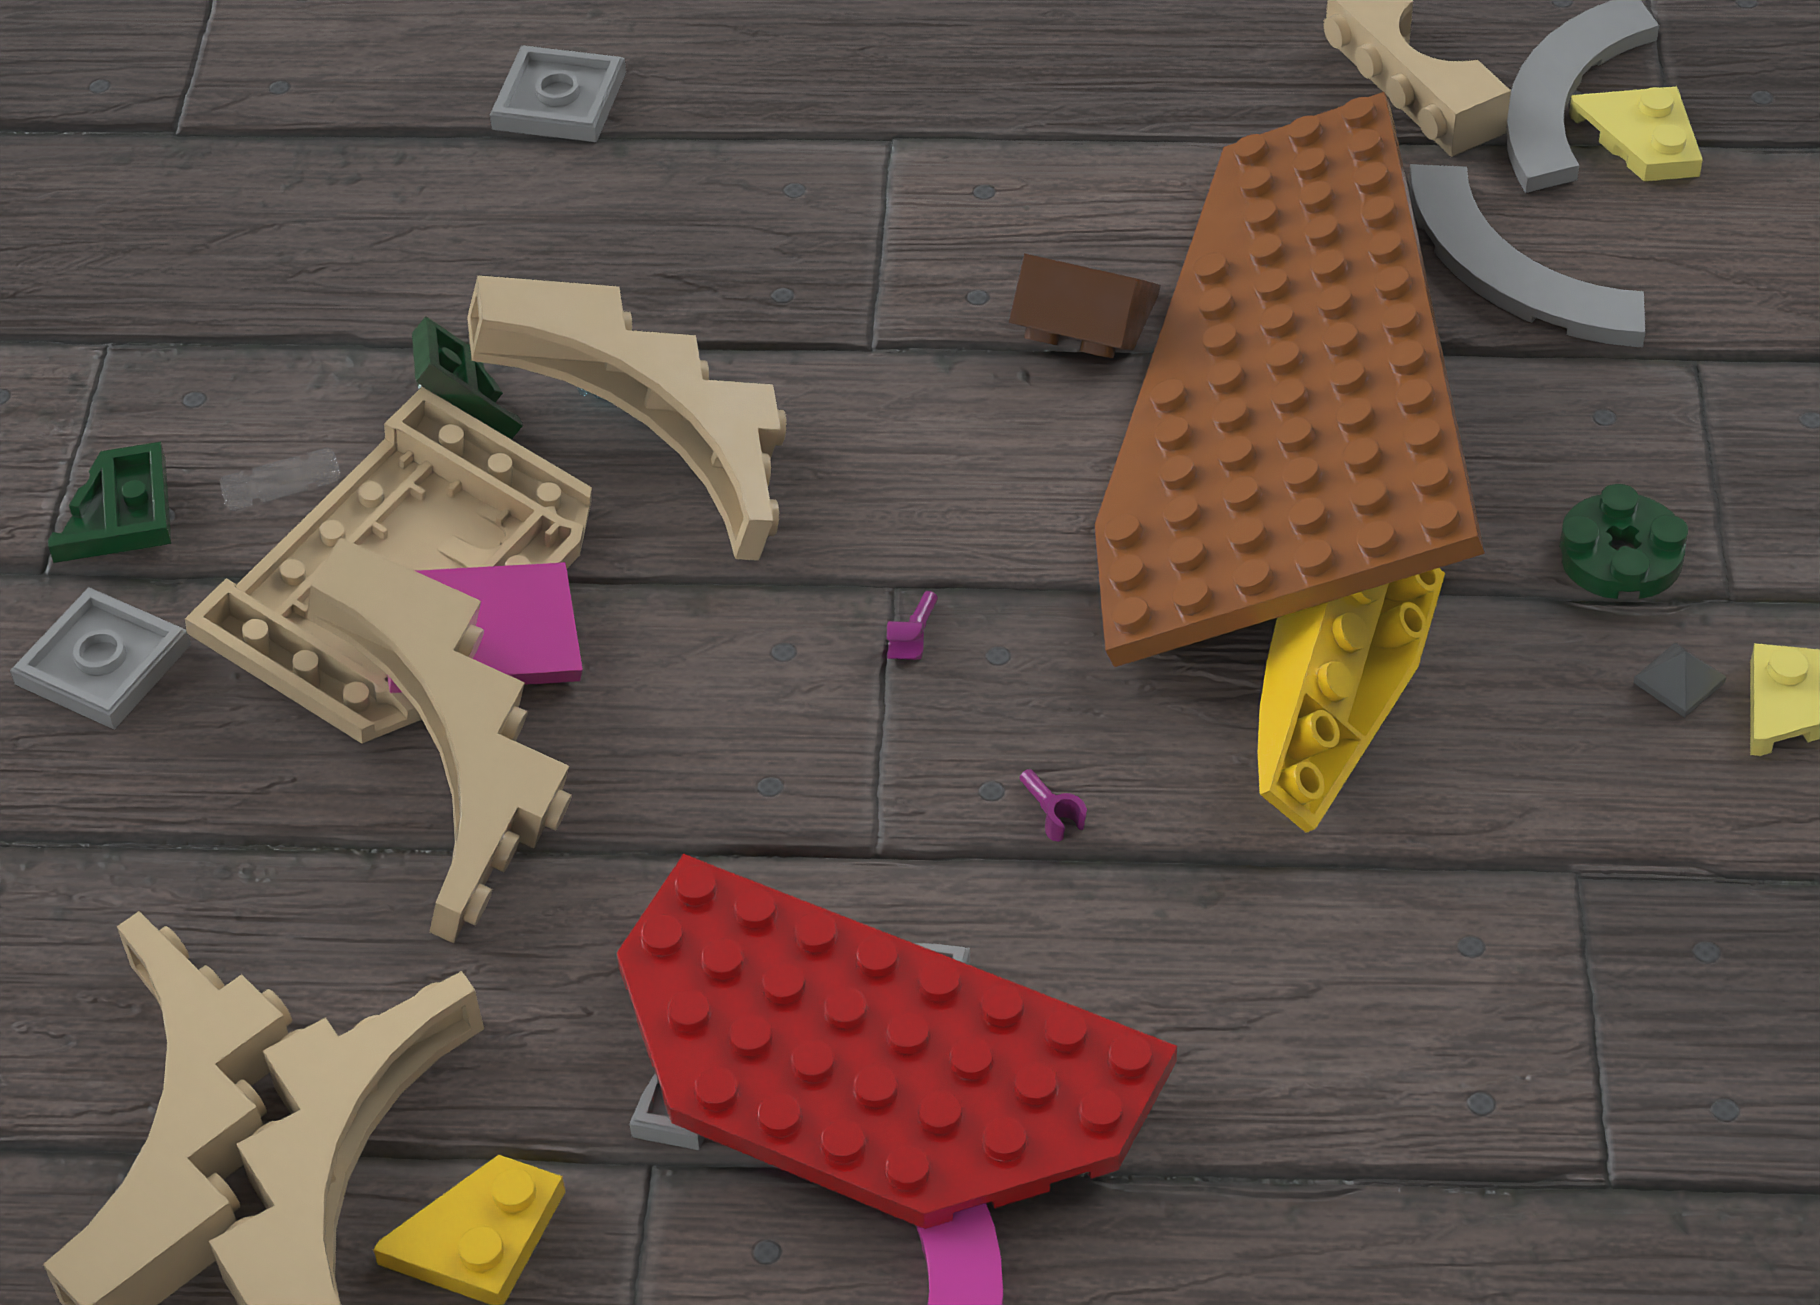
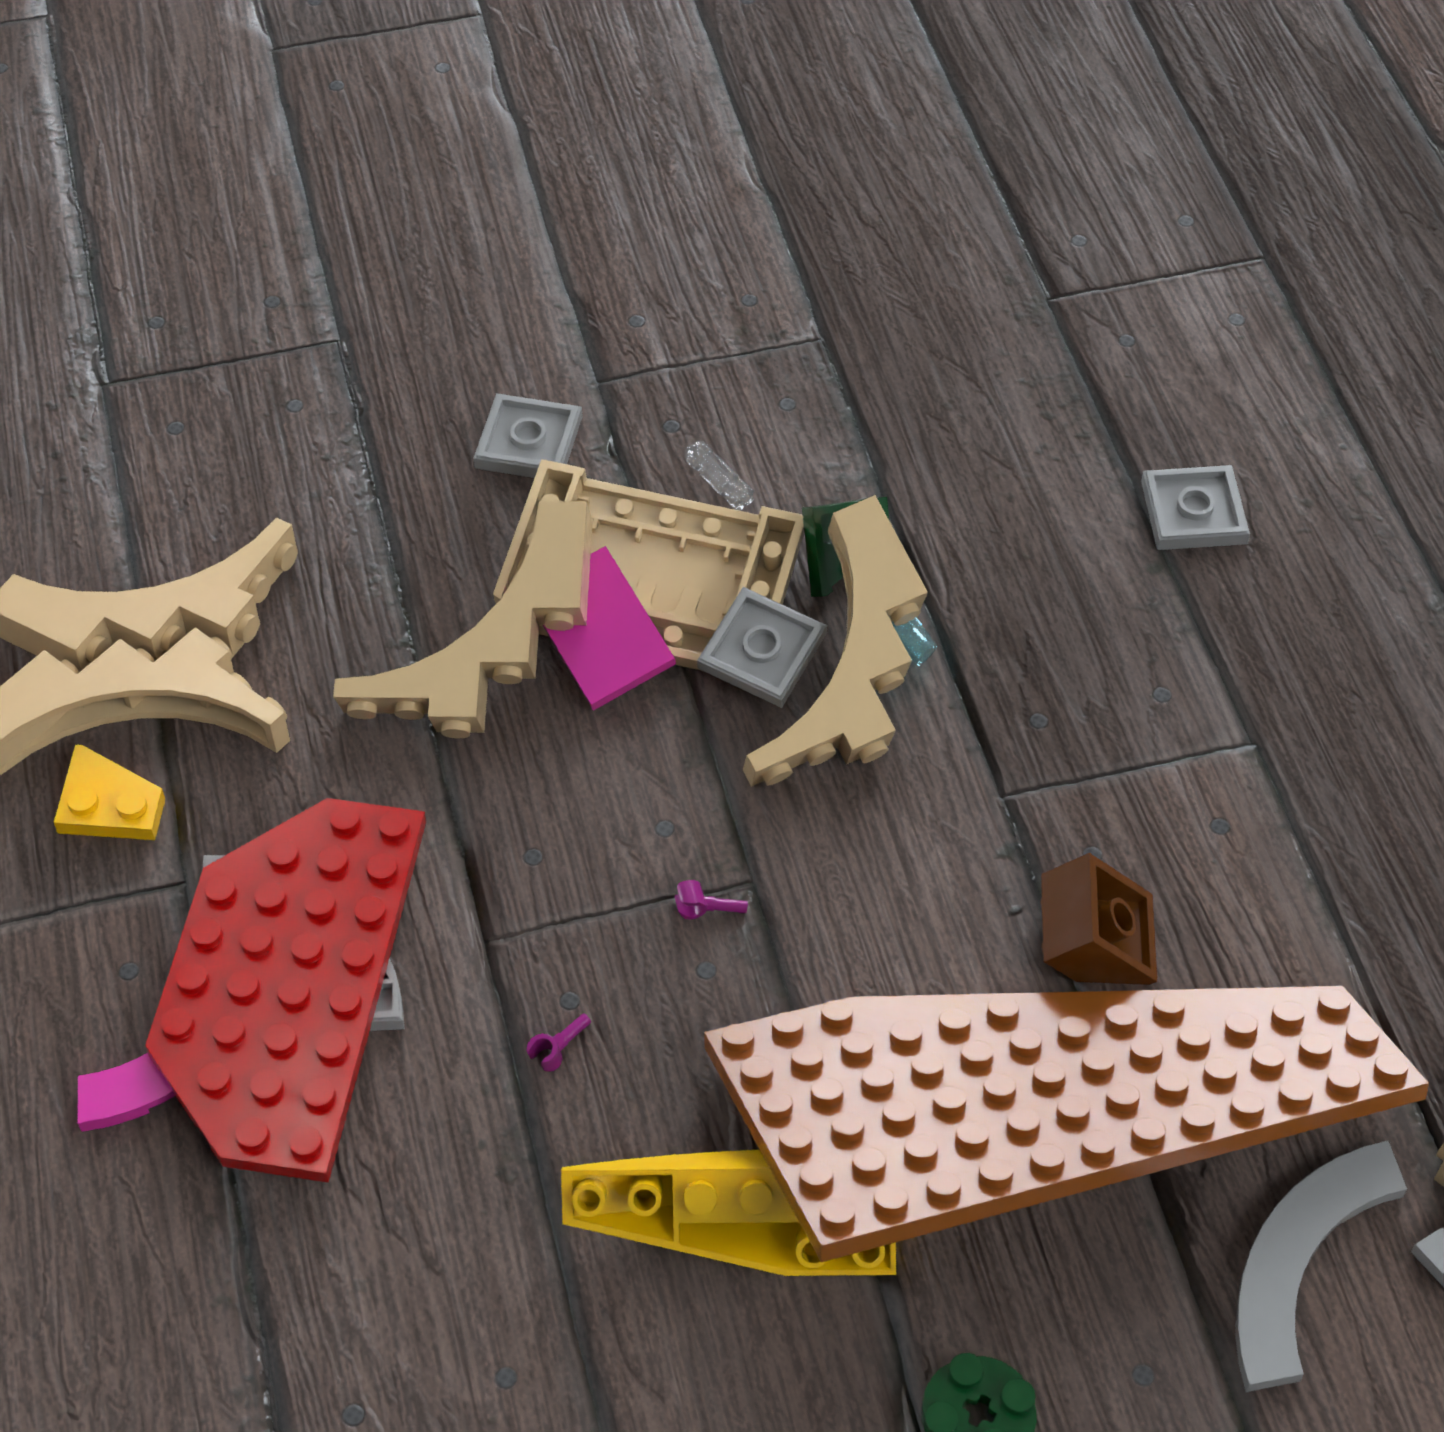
camera: 70 degrees right, 5 degrees up
(118, 507) = (661, 396): dark green wing -> none
(586, 481) = (762, 647): none -> light grey tile

